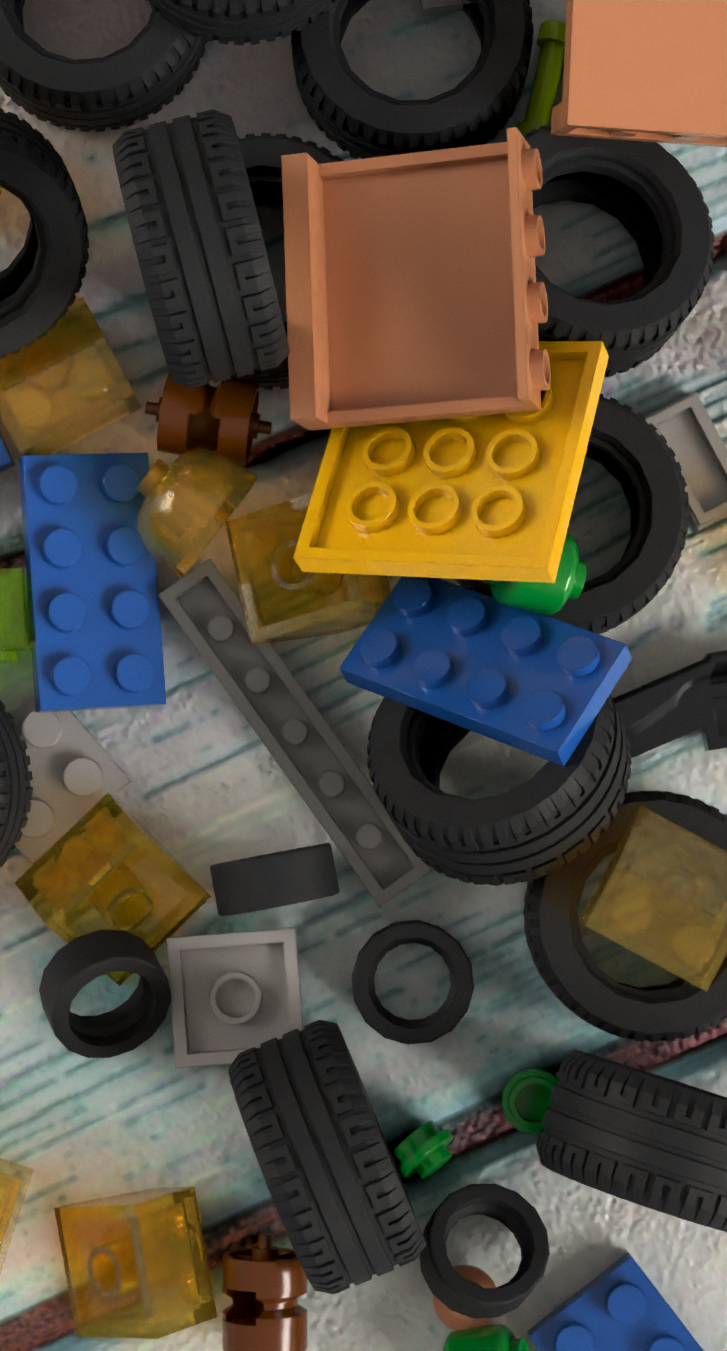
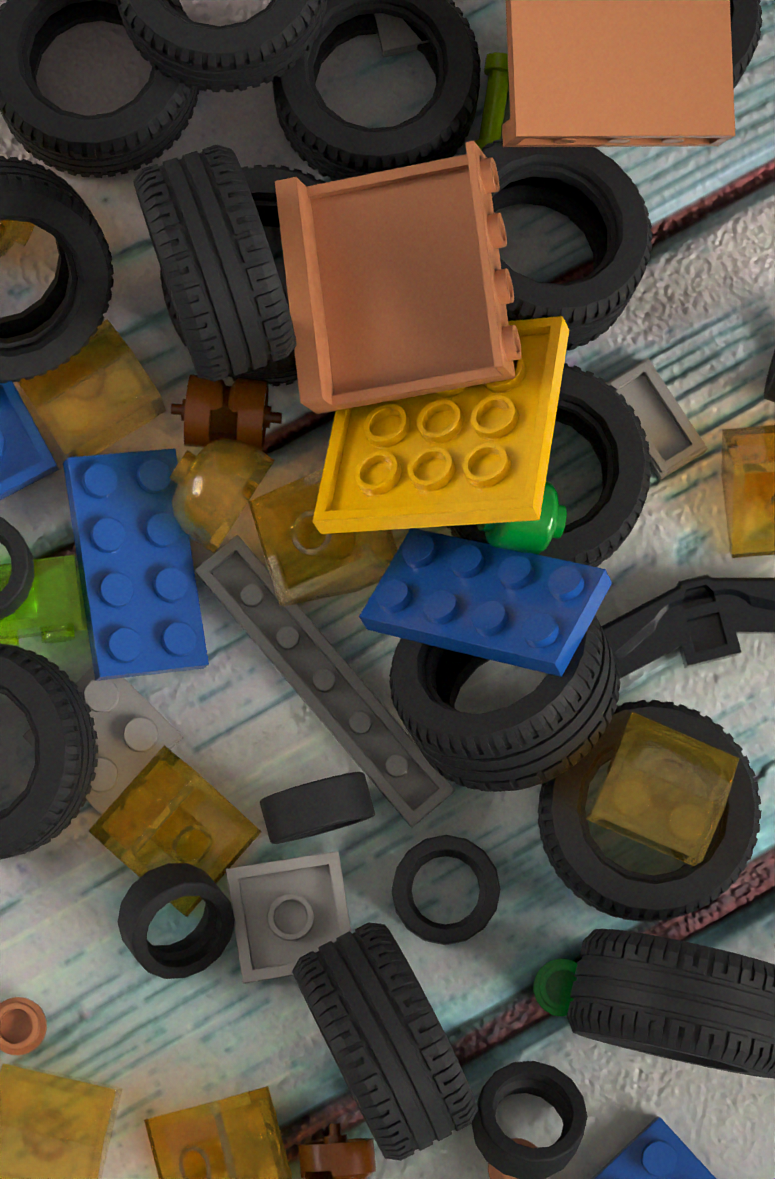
camera: 10 degrees left, 5 degrees down
(424, 1151) = (470, 1037): green plate -> none

